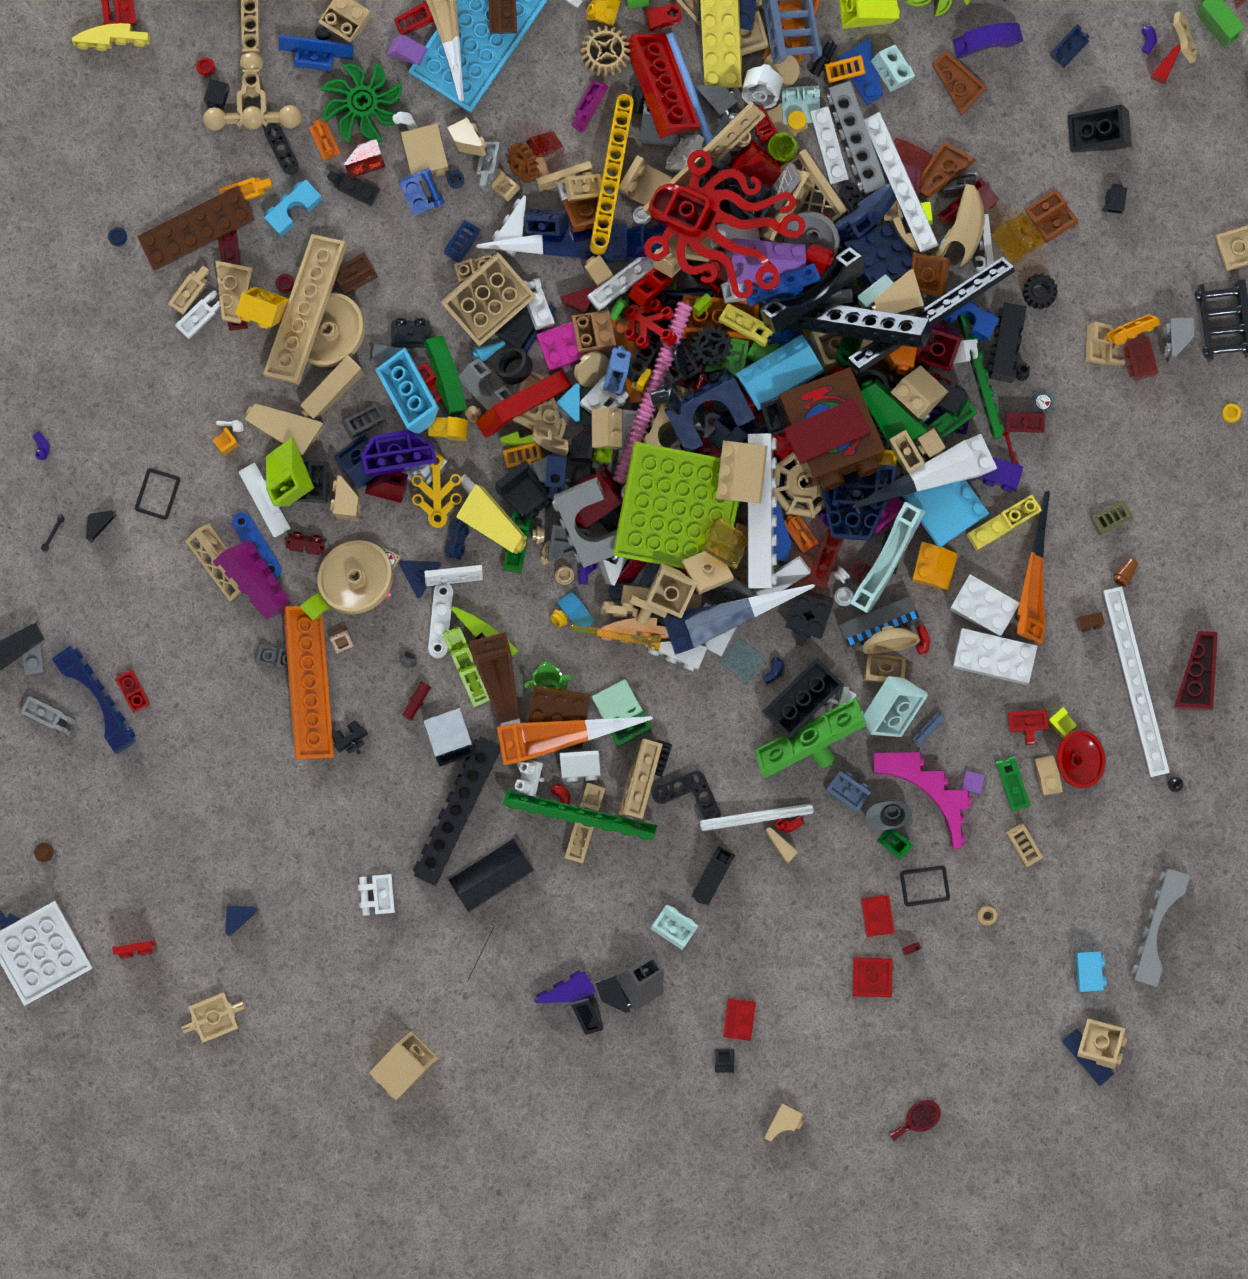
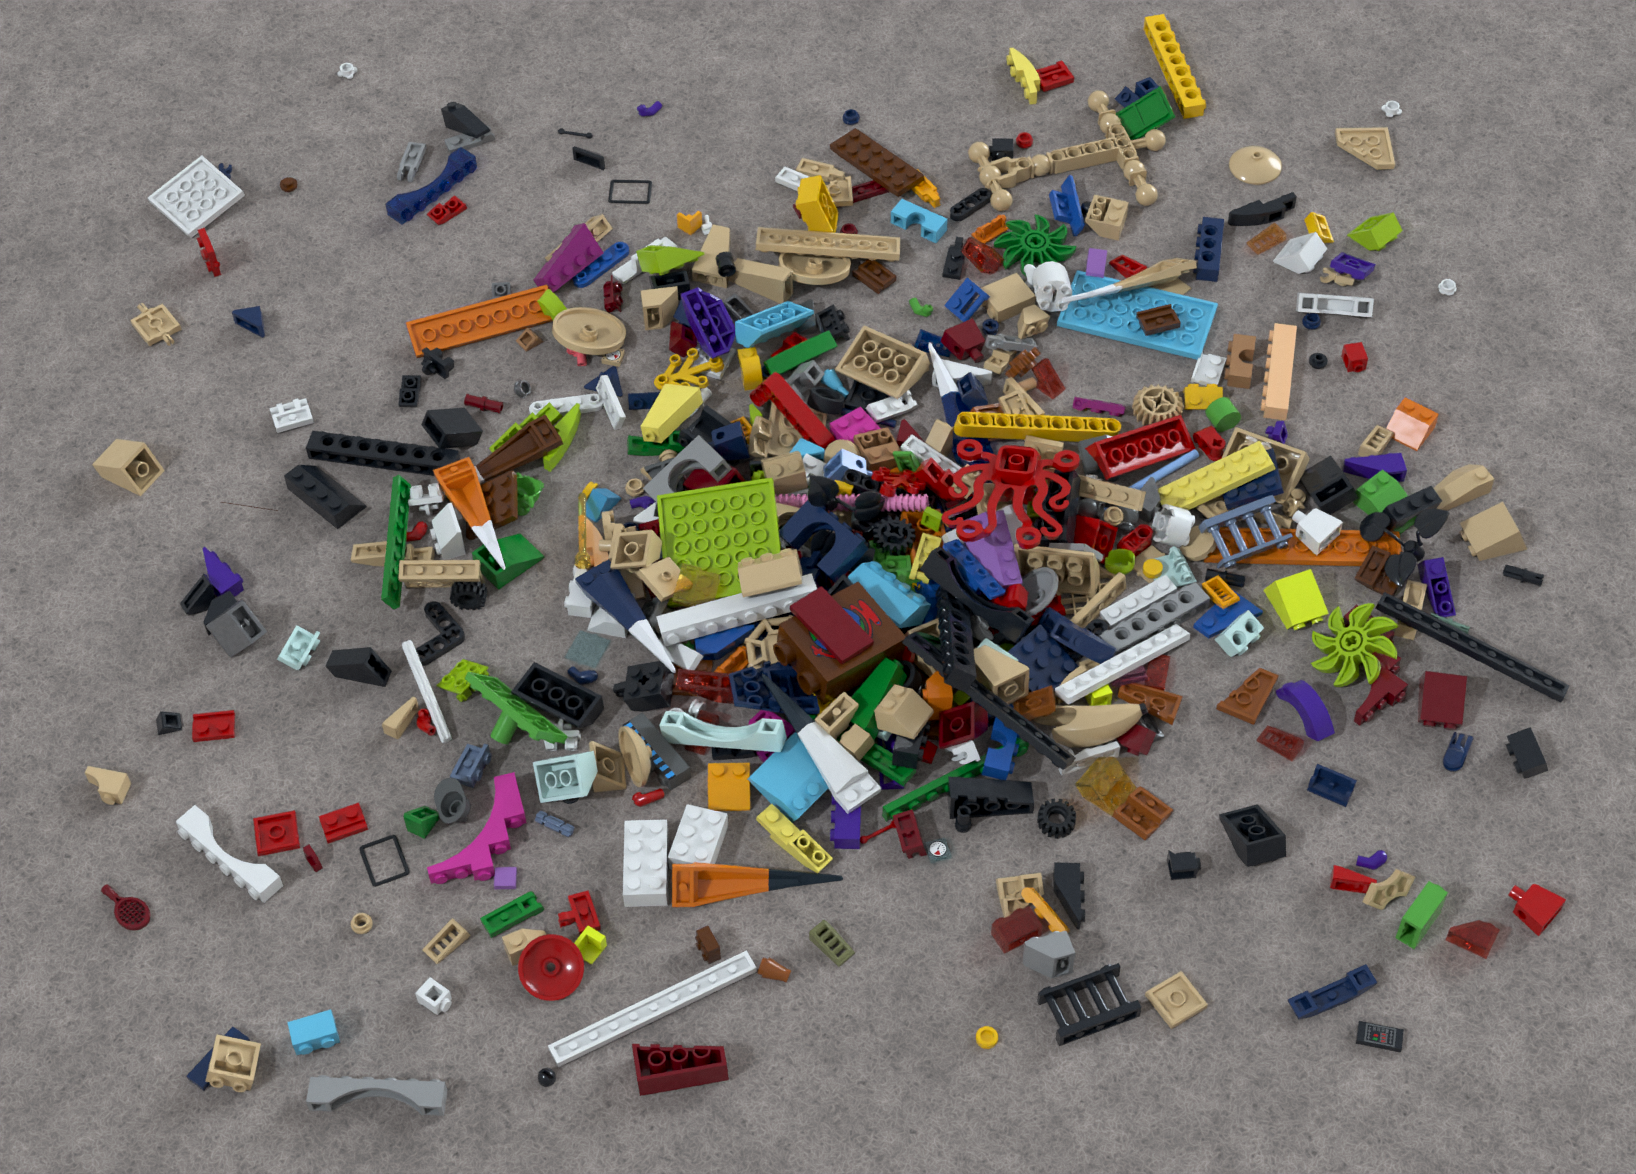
camera: 70 degrees right, 30 degrees down
(311, 419) = (725, 264): none -> black wheel
(378, 771) = (410, 391): none -> black slope
(412, 241) = (920, 310): none -> bright green arm
(432, 103) = (1050, 285): none -> white cylinder
(472, 209) = (964, 341): none -> dark red torso
(748, 781) = (456, 681): none -> lime hinge
(921, 999) = (257, 878): none -> white arch
(1028, 67) = (1283, 750): none -> clear red slope
(1072, 867) = (433, 990): none -> white brick
(1111, 302) = (1067, 887): none -> black slope

